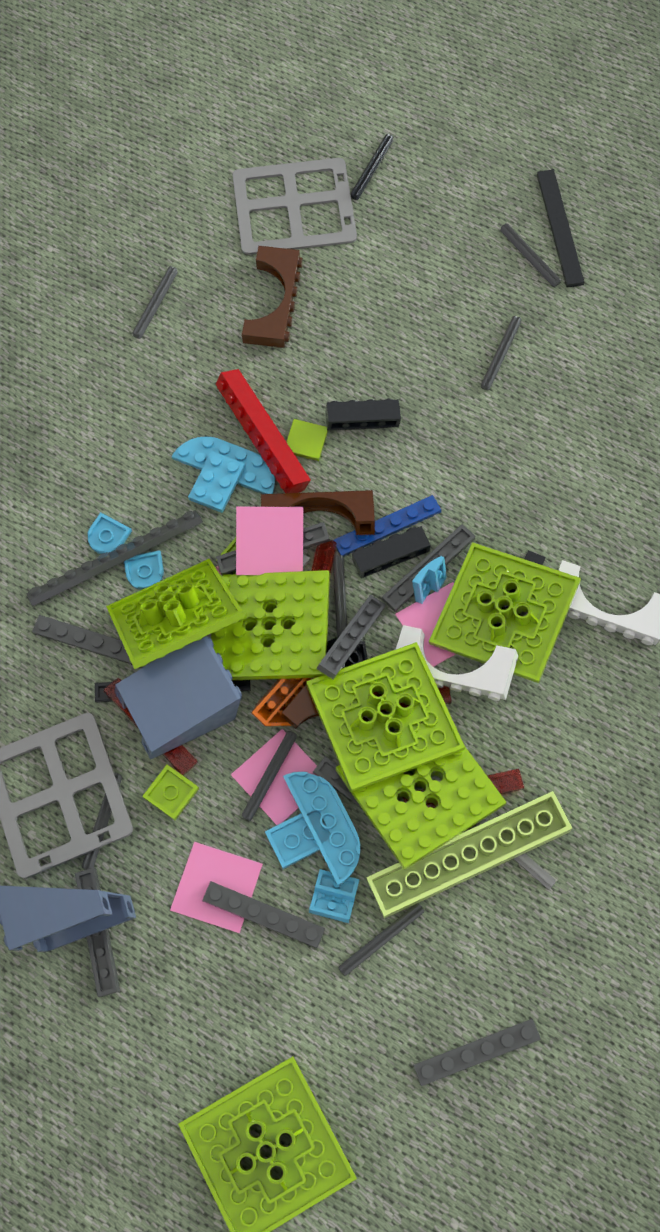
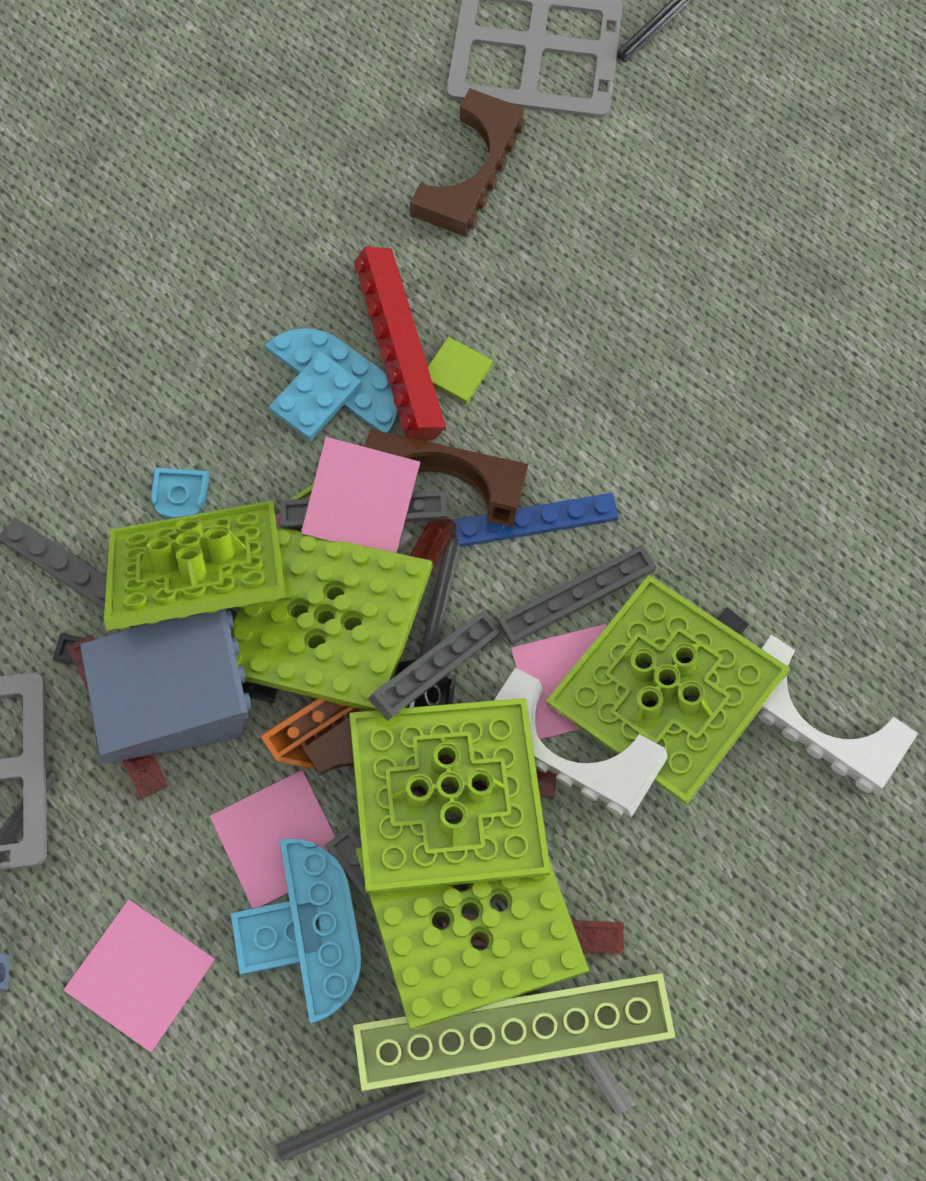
camera: 10 degrees right, 0 degrees up
(107, 534) = (143, 431): medium azure tile -> none
(108, 560) = (133, 466): dark grey plate -> none
(154, 303) = (307, 131): dark grey axle -> none
(170, 792) = (116, 819): lime plate -> none
(263, 914) = (193, 1035): dark grey plate -> none
(269, 775) = (261, 833): dark grey axle -> none
(333, 900) = (297, 1042): medium azure slope -> none
(362, 414) = (546, 355): black brick -> none
(390, 551) = (529, 557): black brick -> none
(429, 579) = (574, 609): medium azure slope -> none
(501, 353) = (765, 319): dark grey axle -> none
(530, 255) = (845, 194): dark grey axle -> none
(560, 228) = (897, 169): black tile -> none

